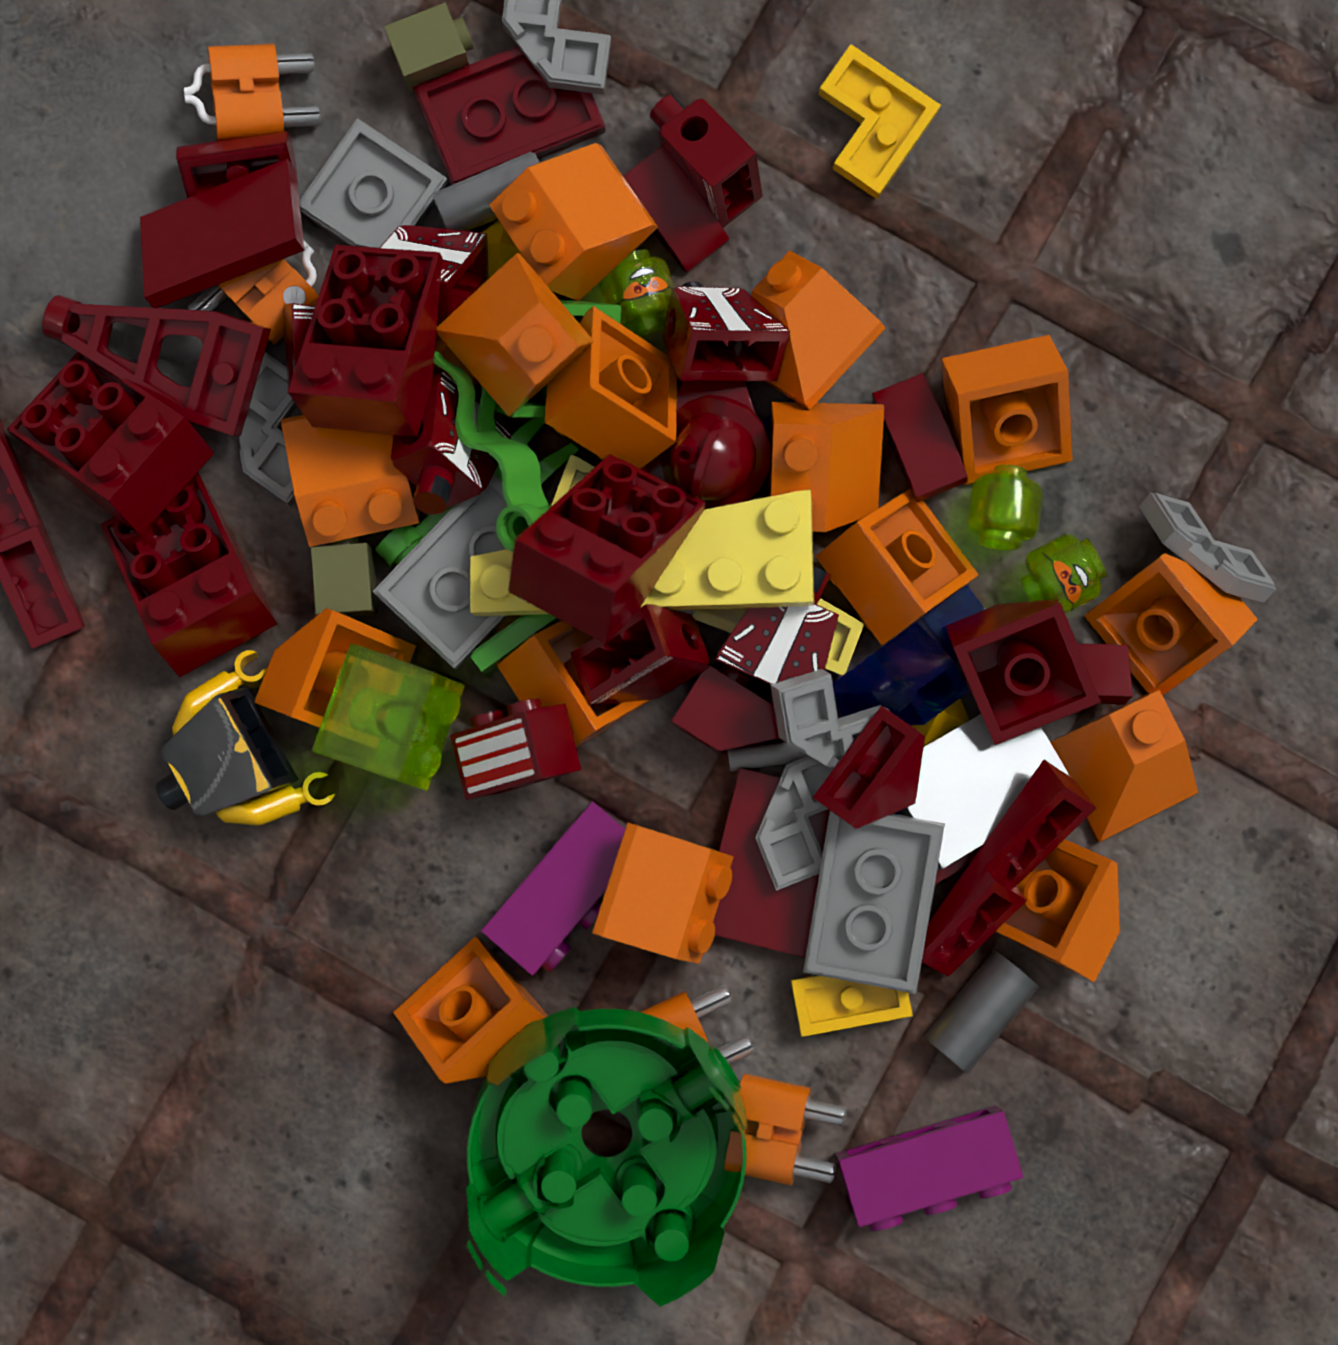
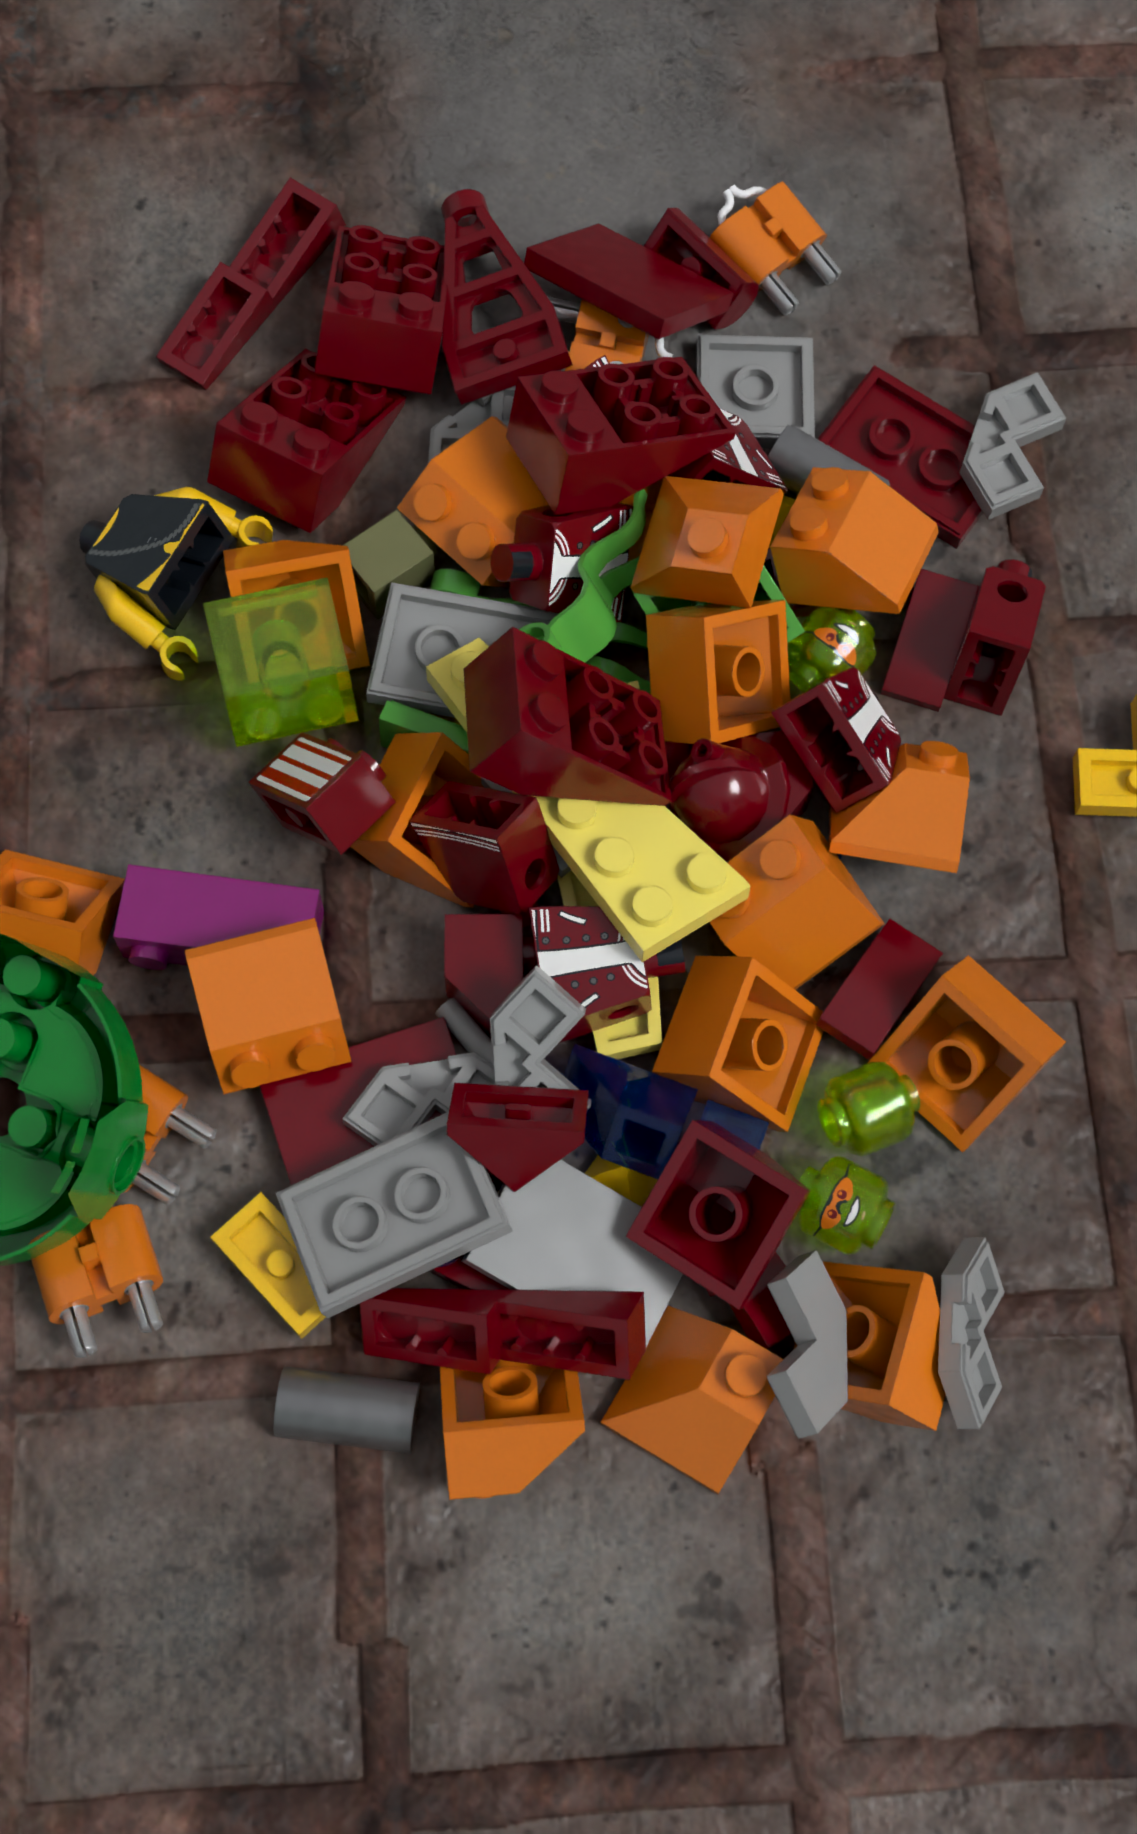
camera: 55 degrees right, 15 degrees down
(429, 44) = (920, 350): olive brick -> none
(929, 1168) = (149, 1453): magenta brick -> none
(1177, 680) = (814, 1375): none -> light grey tile

